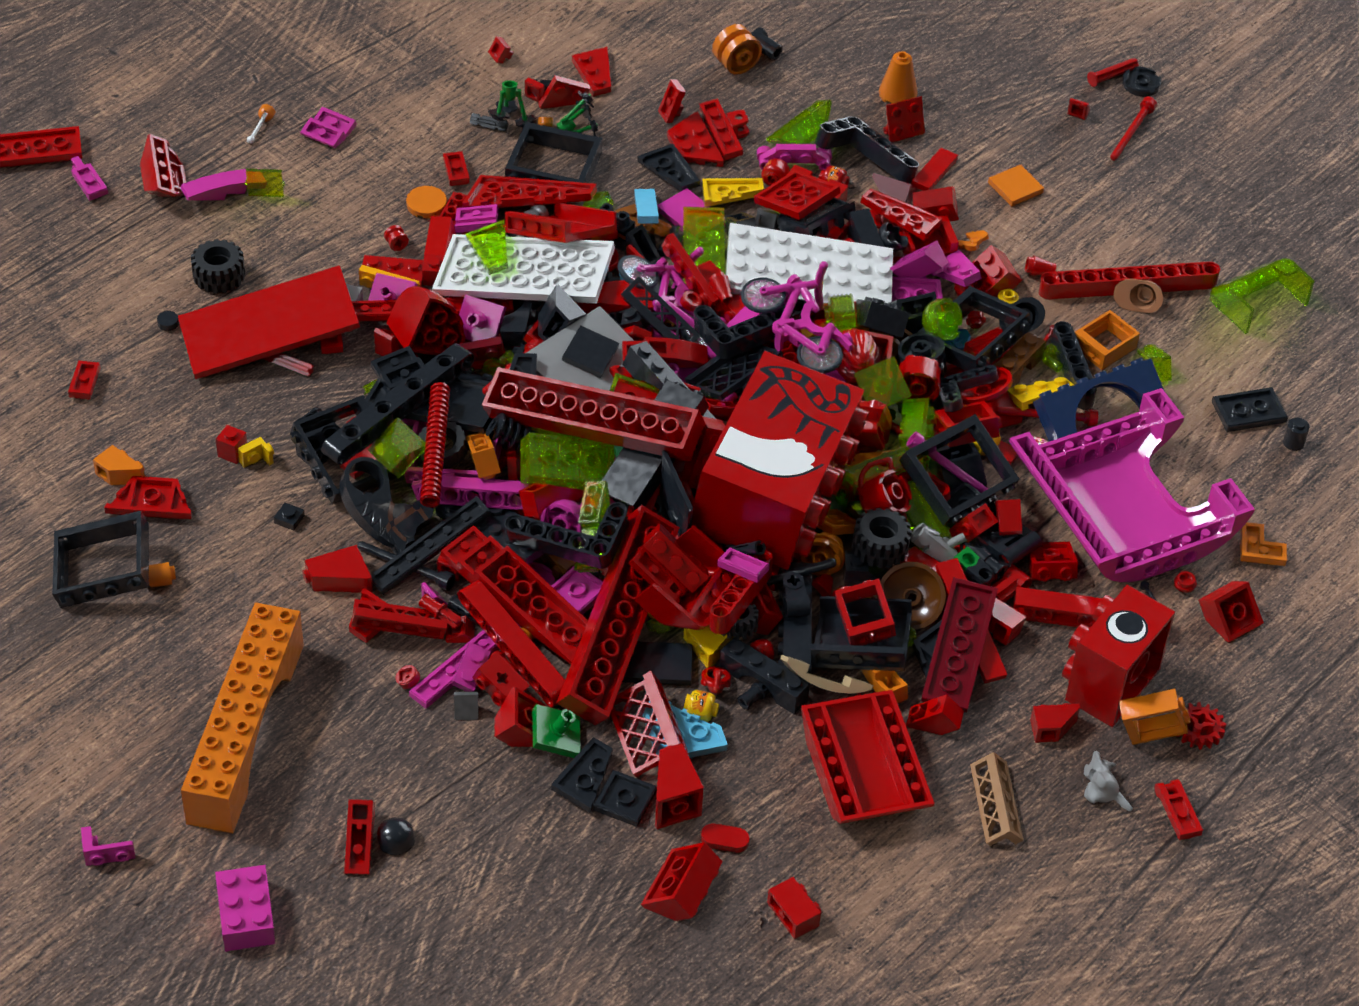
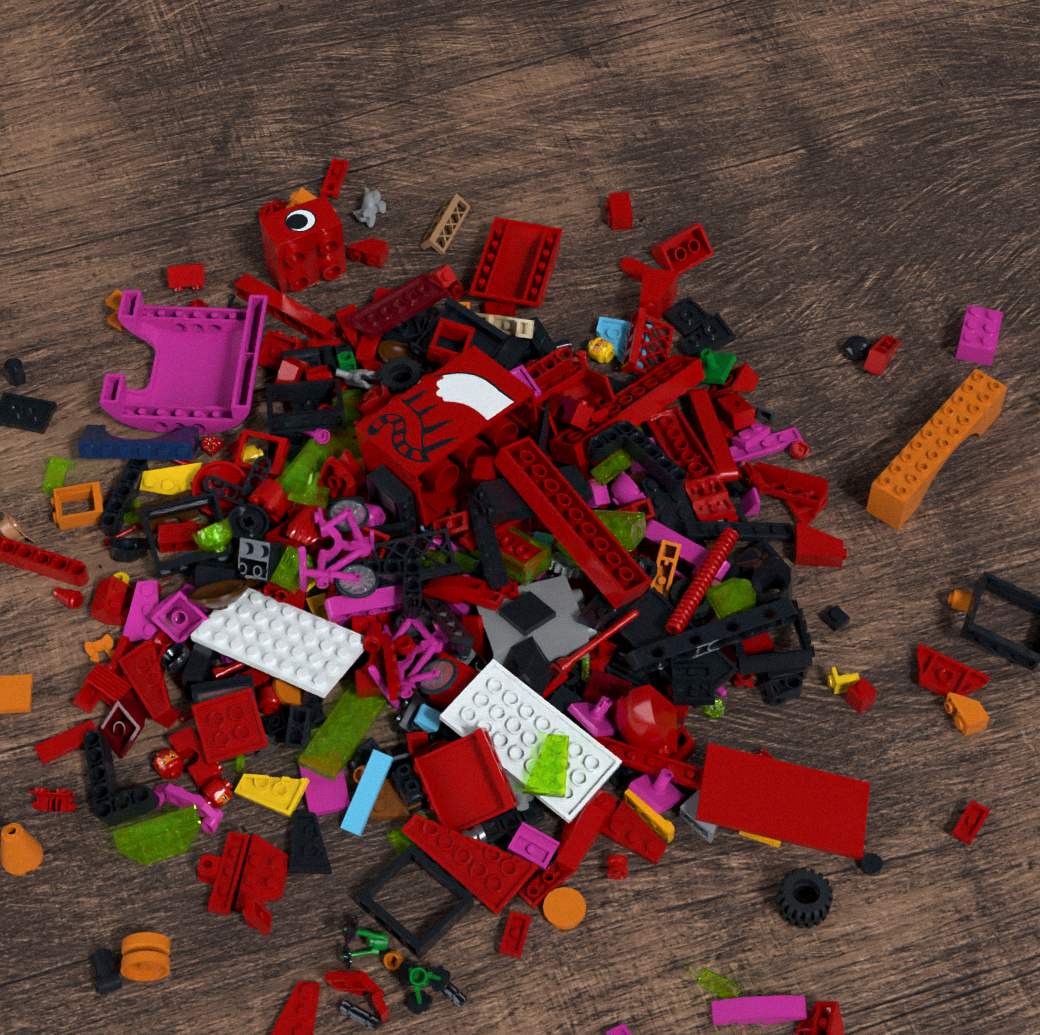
camera: 150 degrees left, 5 degrees up
(899, 265) = (218, 594): none -> reddish brown dish

